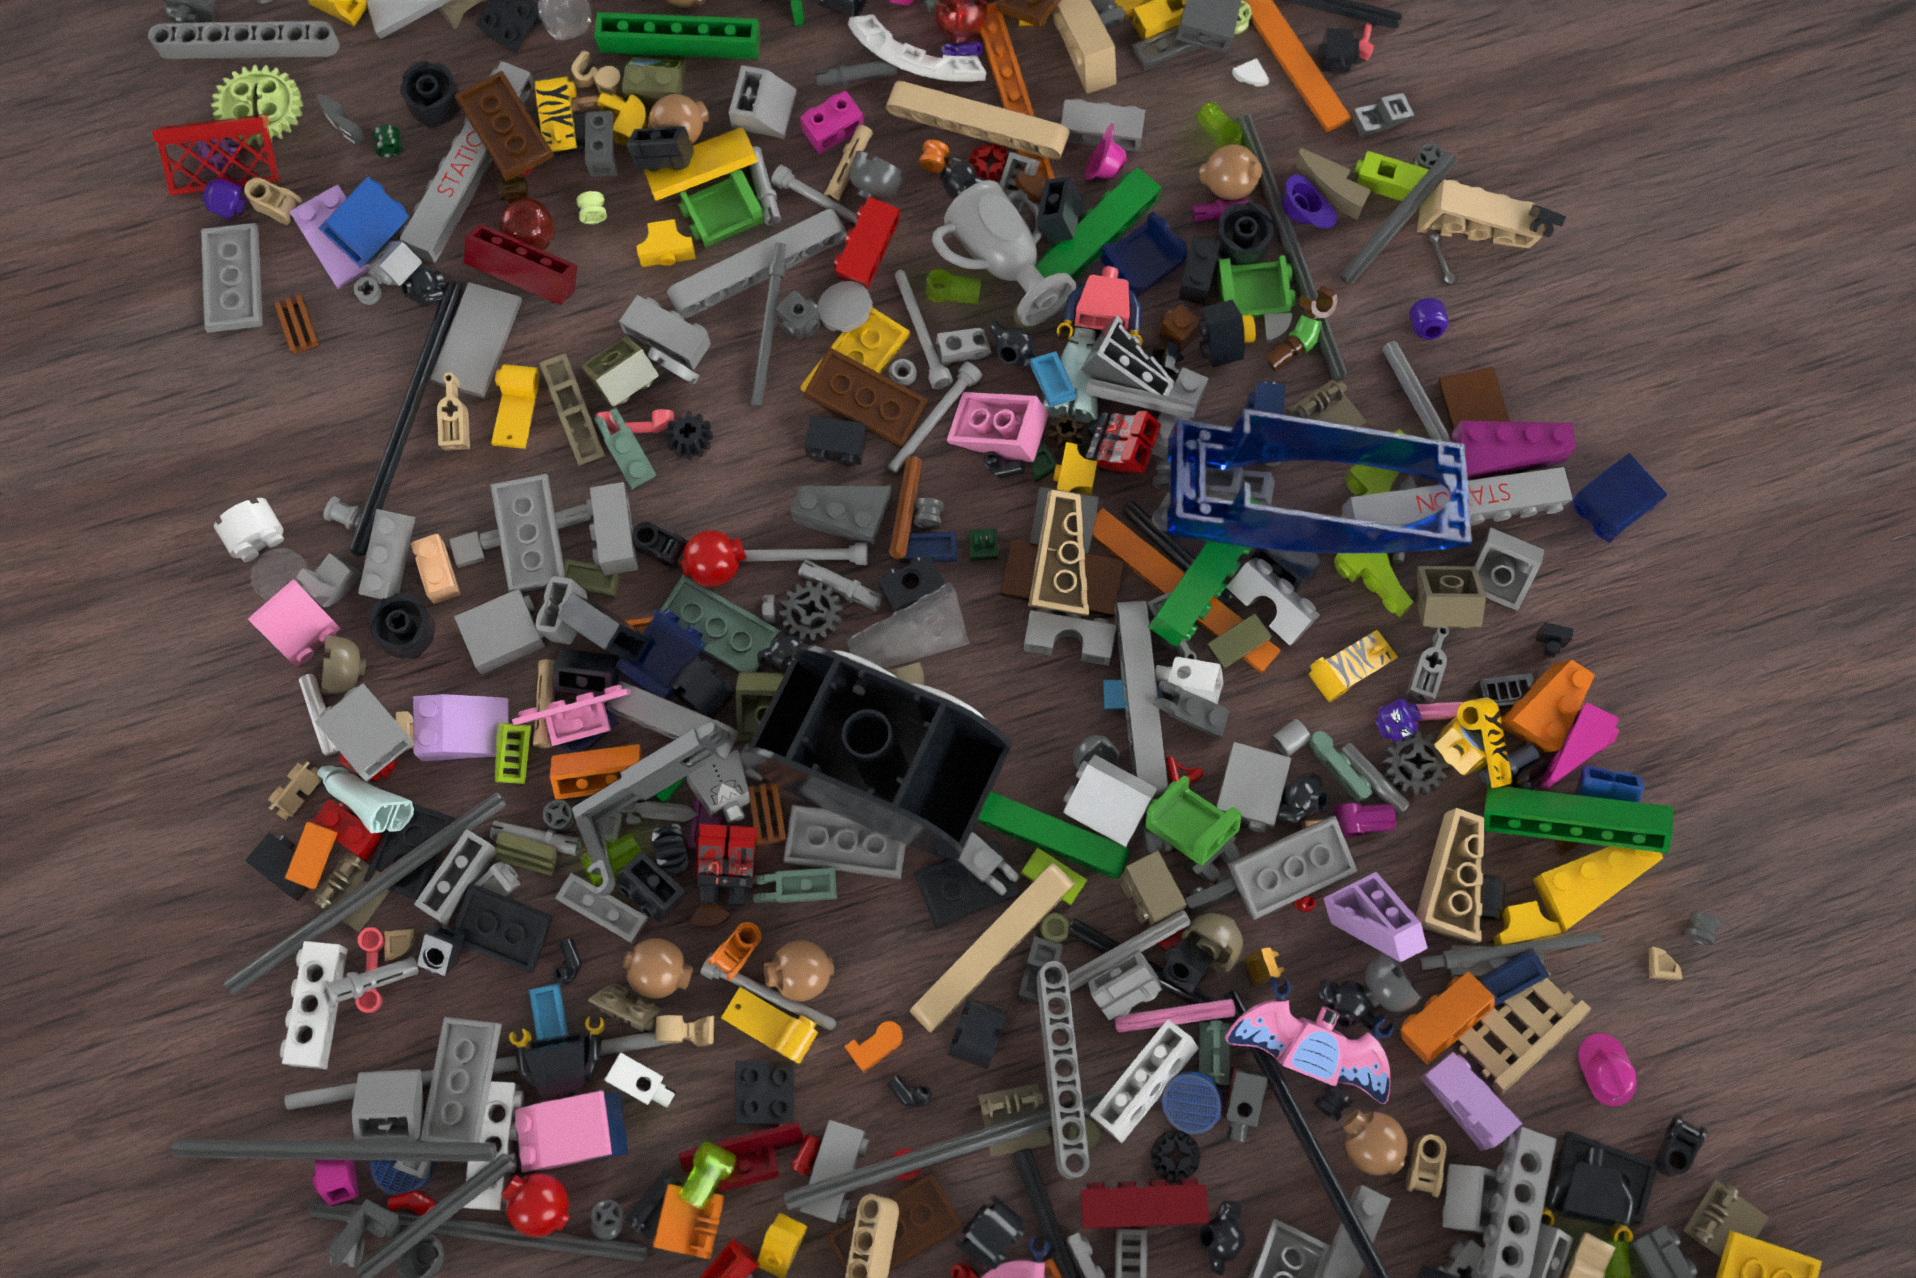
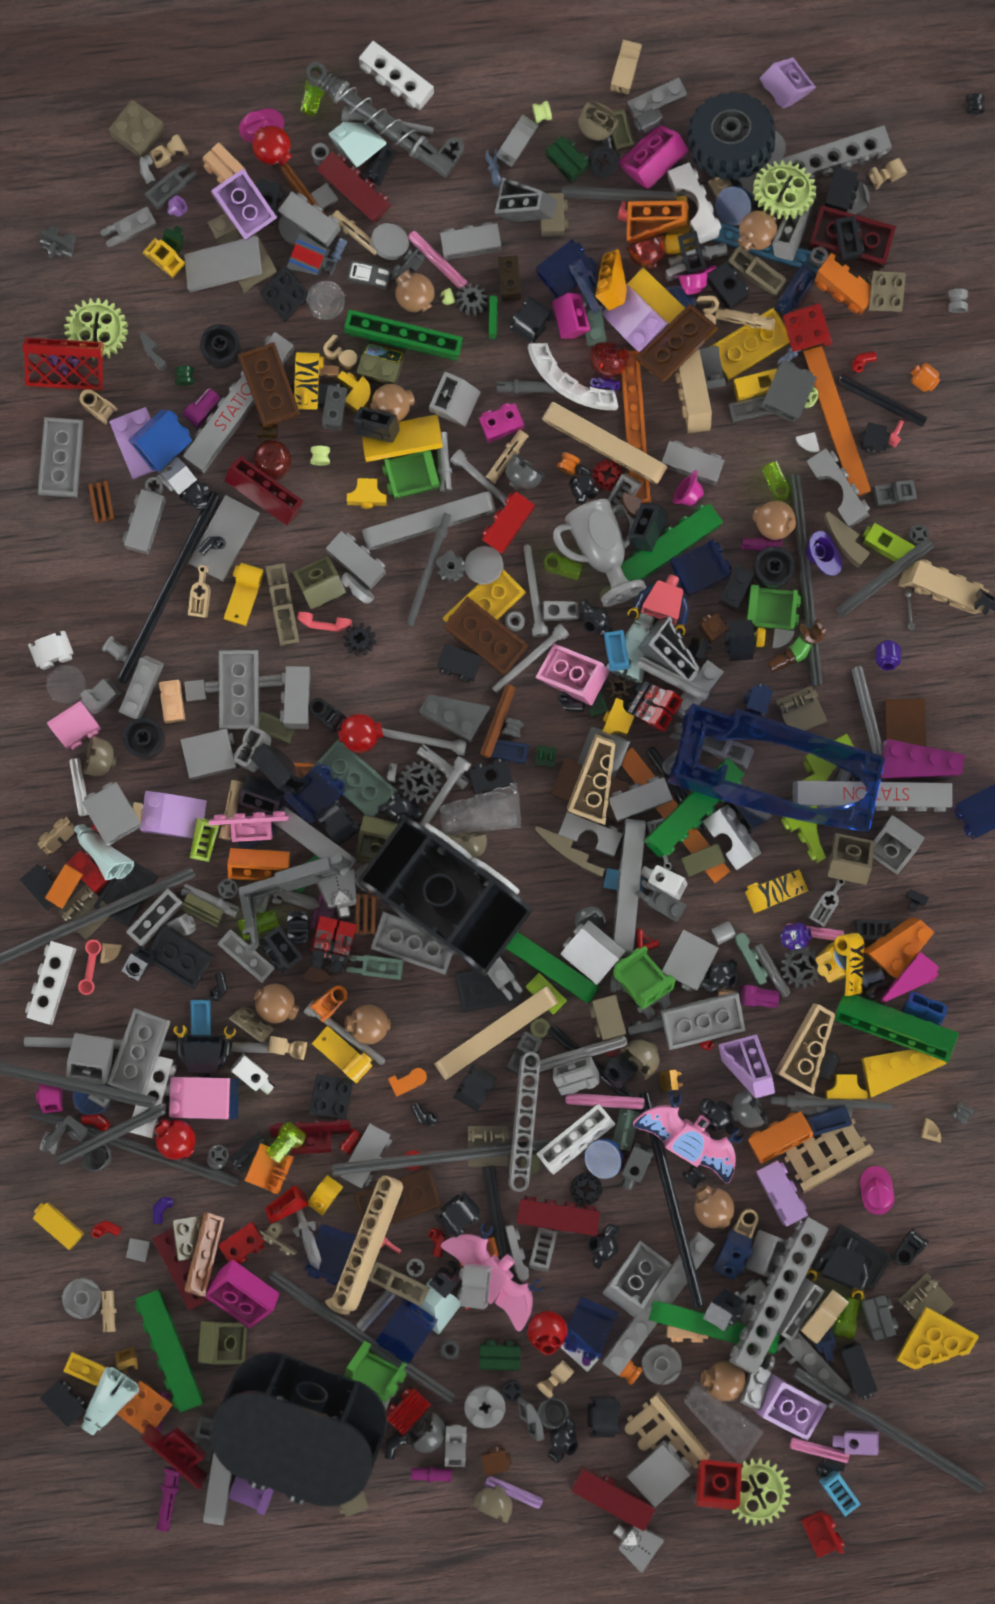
camera: 10 degrees right, 10 degrees up
(200, 39) = (86, 269): light grey beam -> none
(223, 198) = (63, 397): dark purple head -> none
(356, 984) = (82, 976): light grey pin -> none
(360, 337) = (144, 522): none -> light grey brick
(413, 183) = (198, 412): none -> magenta piece
(457, 346) = (212, 542): none -> black arm
(626, 451) = (315, 643): sand green hinge -> none
(864, 577) = (461, 765): none -> light grey piece
(1033, 661) = (562, 846): none -> dark tan slope
(1130, 572) = (639, 798): none -> light grey brick
(1284, 96) = (825, 467): none -> light grey arch
(1421, 1210) = (733, 1254): none -> dark blue brick

